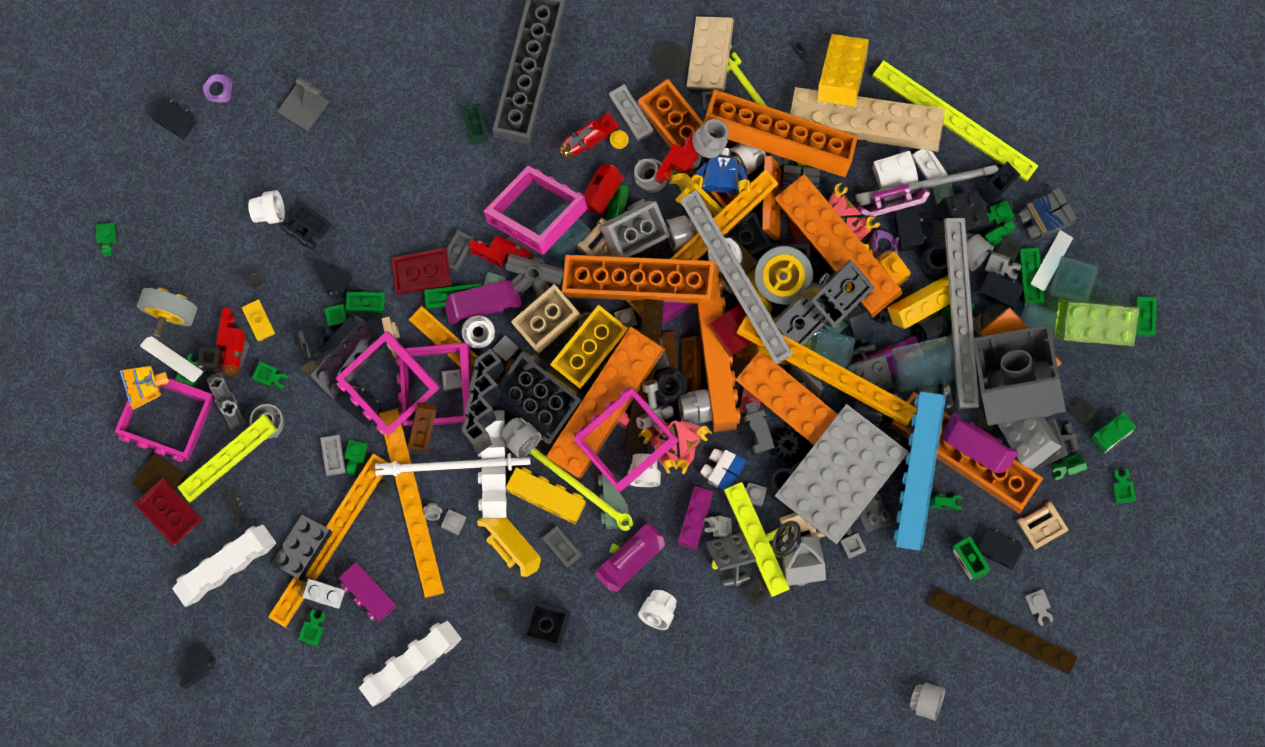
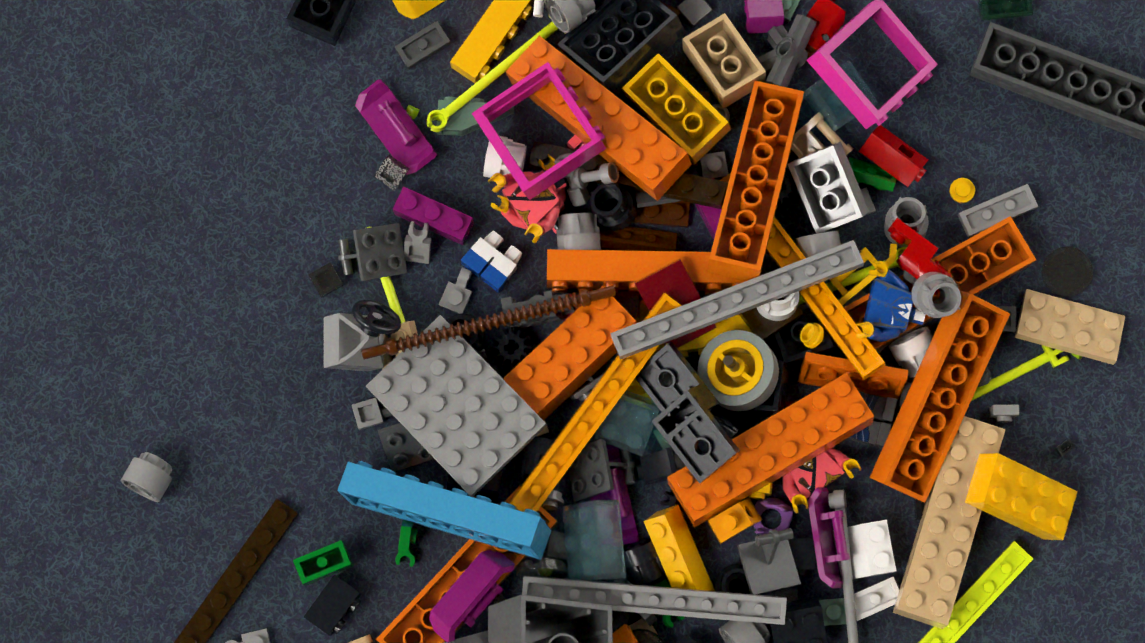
camera: 95 degrees right, 5 degrees up
(588, 136) = (970, 149): red plate -> none
(658, 610) = (321, 152): white piece -> none
(665, 555) = (391, 172): none -> clear smoke plate
(749, 226) = (812, 335): none -> yellow plate
(756, 539) = (395, 286): neon yellow plate -> none
(780, 91) = (1003, 413): none -> light grey plate
(801, 512) = (393, 346): none -> reddish brown hose
(920, 237) = (769, 562): none -> dark grey plate

